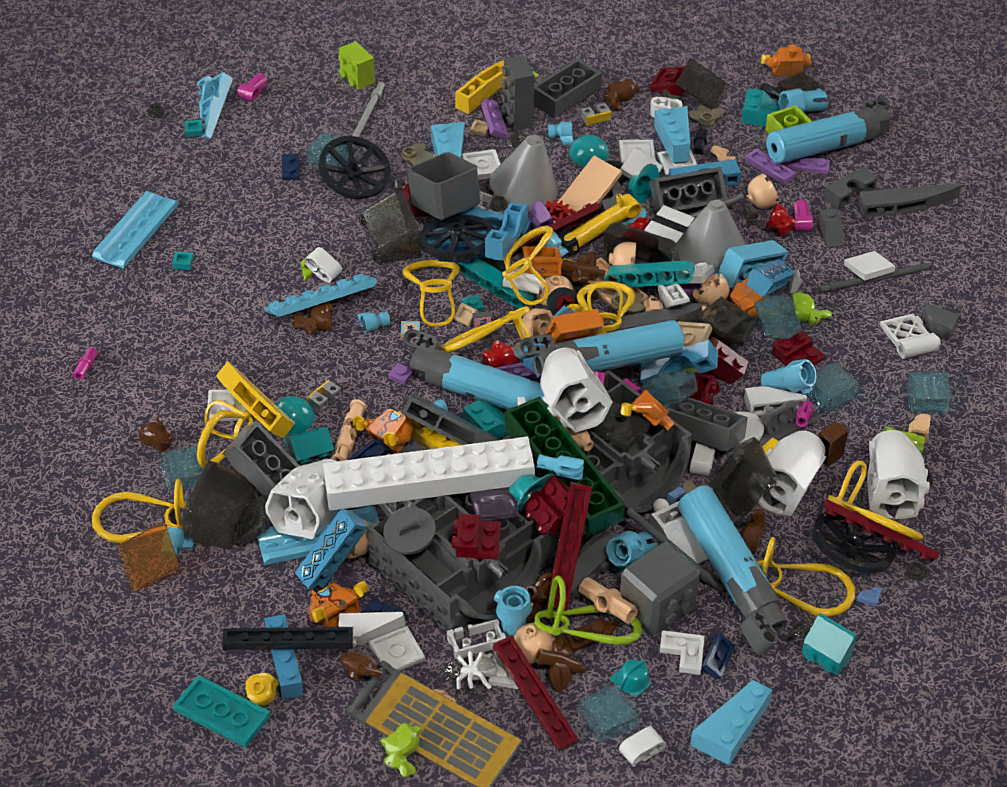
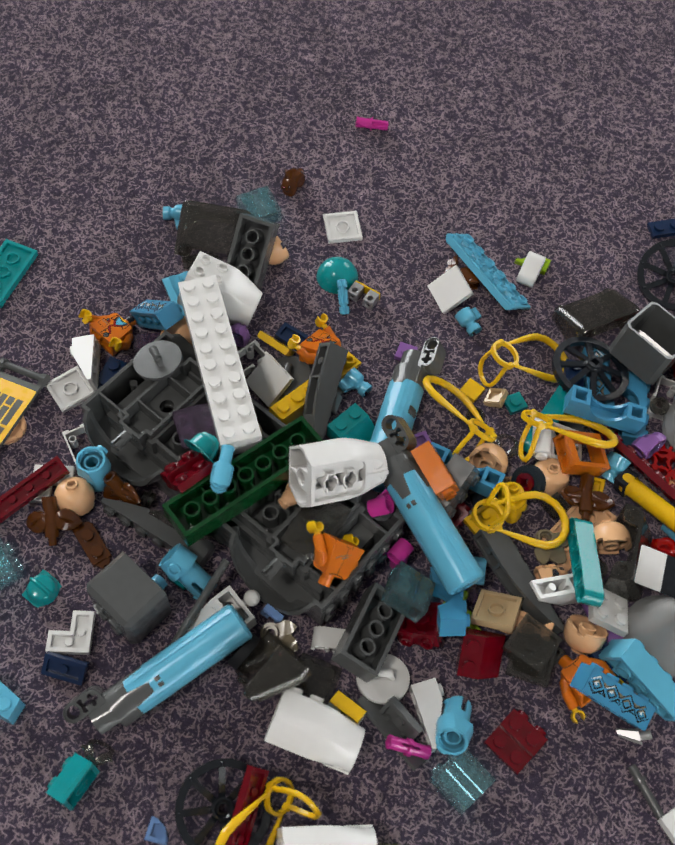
camera: 80 degrees right, 15 degrees up
(134, 229) = (544, 128): medium azure plate -> none
(148, 556) = (159, 199): clear orange piece -> none
(178, 503) = (211, 161): yellow animal -> none
(183, 260) = (511, 167): teal plate -> none
(213, 421) = (286, 205): yellow animal -> none
(255, 401) = (333, 239): yellow slope -> none
(261, 688) = (21, 293): yellow head -> none
(285, 663) = (36, 309): dark azure arch -> none
(287, 638) = (59, 299): black tile -> none
(309, 444) = (300, 289): teal slope -> none
(326, 409) = (343, 297): none -> medium azure axle
(336, 326) = (450, 289): none -> white tile
(348, 432) = (303, 317): light nougat piece -> none
(360, 665) = (43, 359): reddish brown animal -> none
(407, 325) = (467, 353): tile -> none
(452, 331) = (472, 390): none -> yellow tile
(476, 537) = (146, 413): dark red plate -> none
(476, 670) = (41, 451): animal -> none
(481, 318) = (490, 411): tile -> none
(499, 355) = (439, 430): red hair -> none
(560, 615) = (77, 493): lime animal -> none
(570, 539) = (145, 495): dark red plate -> none
(608, 600) = (128, 545): light nougat piece -> none
(754, 530) = (226, 695): reddish brown animal -> none
(777, 316) = (550, 709): clear light blue brick -> none
(806, 310) = (588, 748): lime animal -> none
(809, 567) = (132, 773): yellow animal -> none
(834, 440) = (365, 779): reddish brown brick -> none

